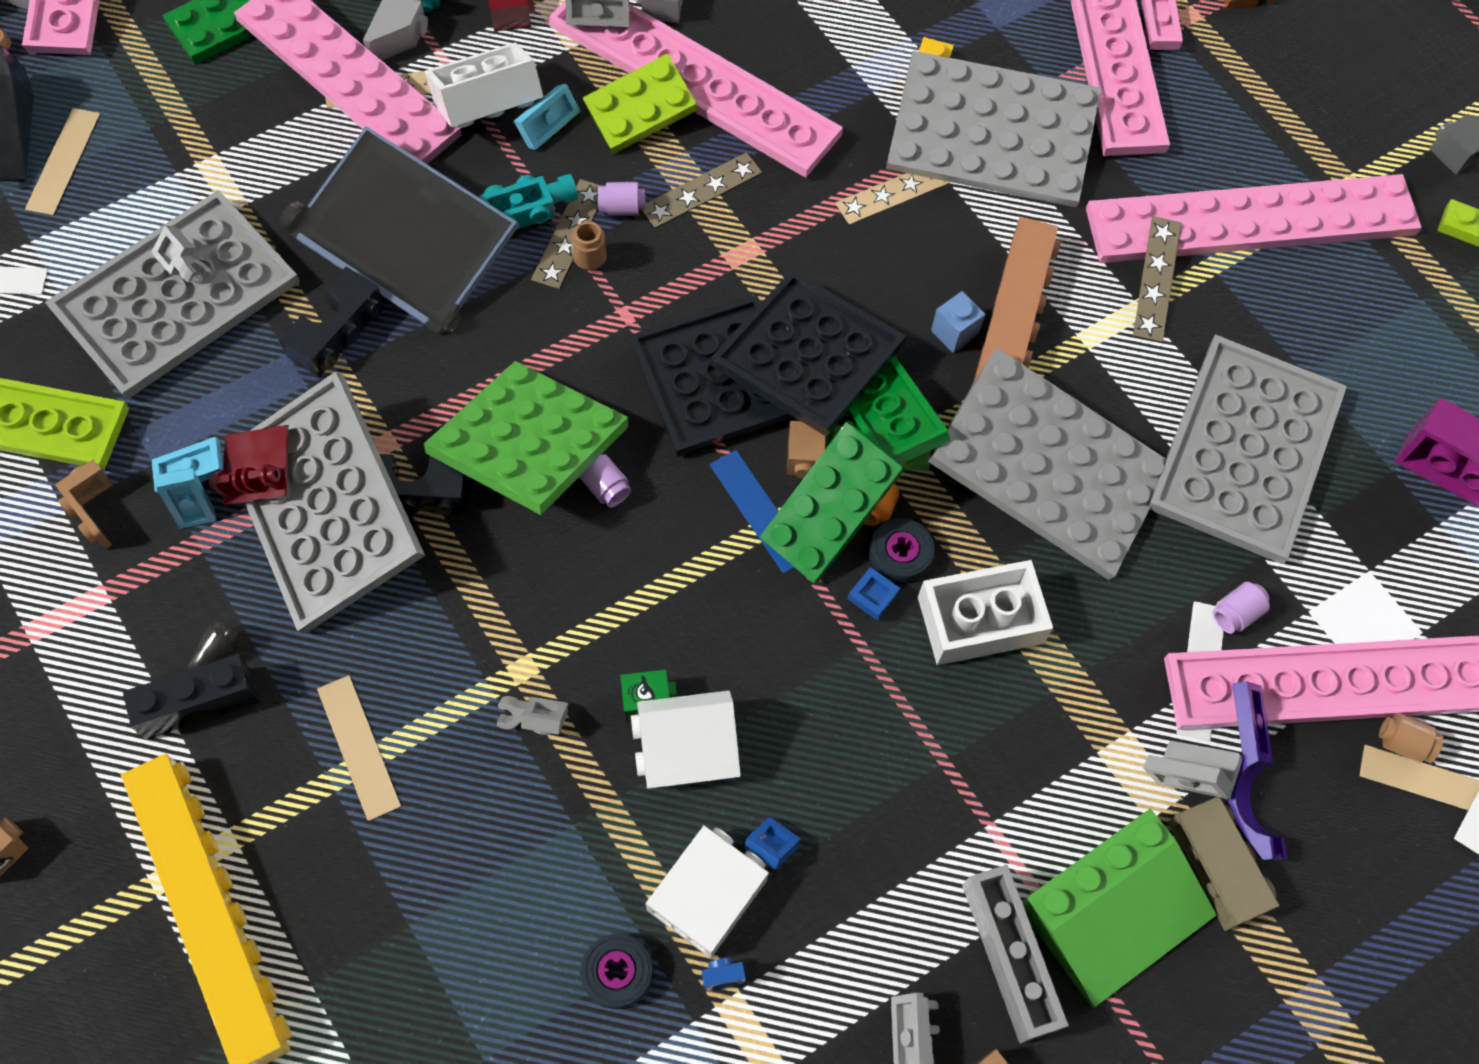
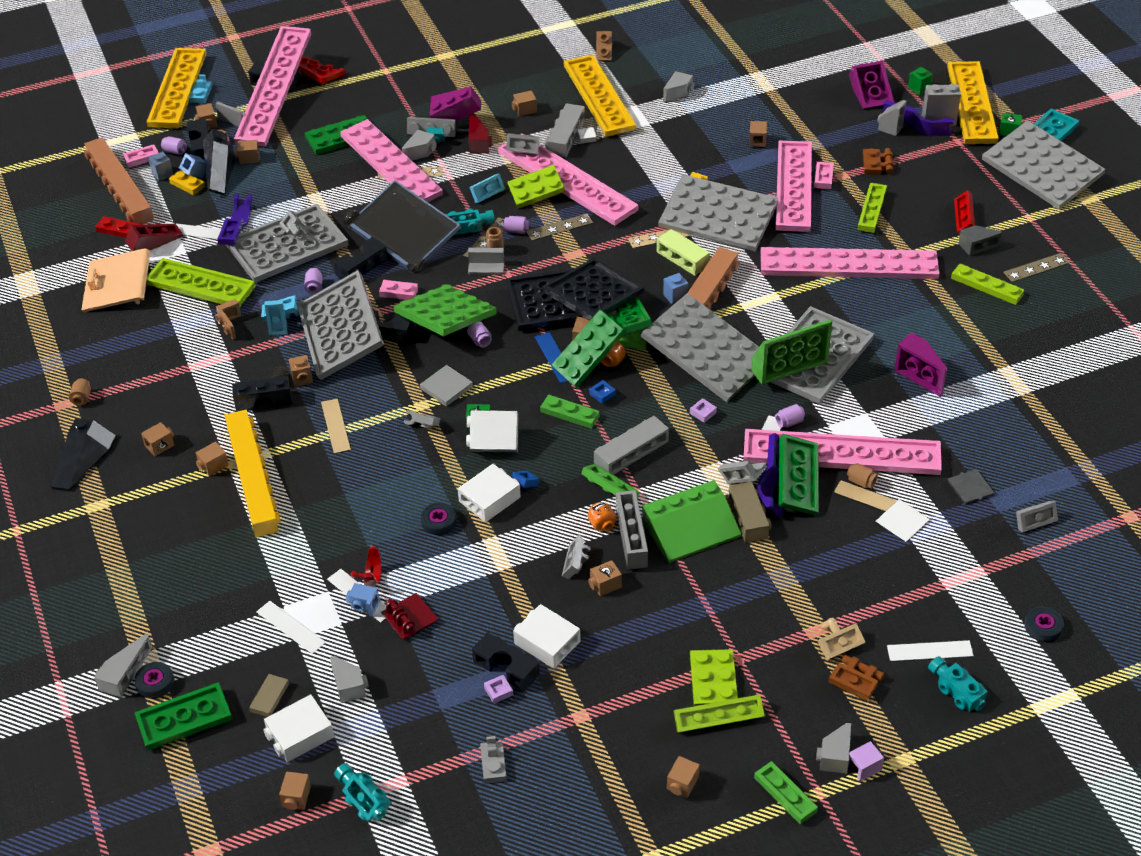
camera: 15 degrees right, 20 degrees down
(55, 74) = (248, 151): none -> medium nougat brick
(56, 268) = (232, 226): none -> dark purple piece
(62, 161) = (244, 186): tan sticker -> none
(113, 888) = (211, 459): none -> medium nougat brick
(246, 384) = (313, 281): none -> lavender brick
(253, 466) = (310, 308): dark red hinge -> none
(261, 624) = (300, 371): none -> medium nougat brick
(421, 383) = (398, 290): none -> bright pink plate
(484, 85) = (458, 170): white brick -> none
(563, 615) = (446, 385): none -> light grey tile
(580, 295) = (486, 261): none -> light grey panel
(722, 974) = (488, 524): blue plate -> none
(819, 648) = (570, 411): none -> bright green plate
(911, 535) = (624, 384): black bush -> none
(941, 828) = (606, 480): none -> bright green plate
(943, 919) = (602, 516): none -> orange head
(950, 230) = (683, 252): none -> yellowish green brick
(959, 727) = (631, 445): none -> light grey brick
(984, 612) = (655, 398): white brick -> none
(1075, 614) = (703, 410): none -> lavender plate
(1157, 279) = (787, 282): dark tan sticker -> none
(1226, 471) = (792, 352): none -> bright green slope
(1265, 87) = (872, 207): none -> lime plate
(1303, 765) = (798, 474): none -> green plate
(1430, 83) = (964, 211): none -> red plate

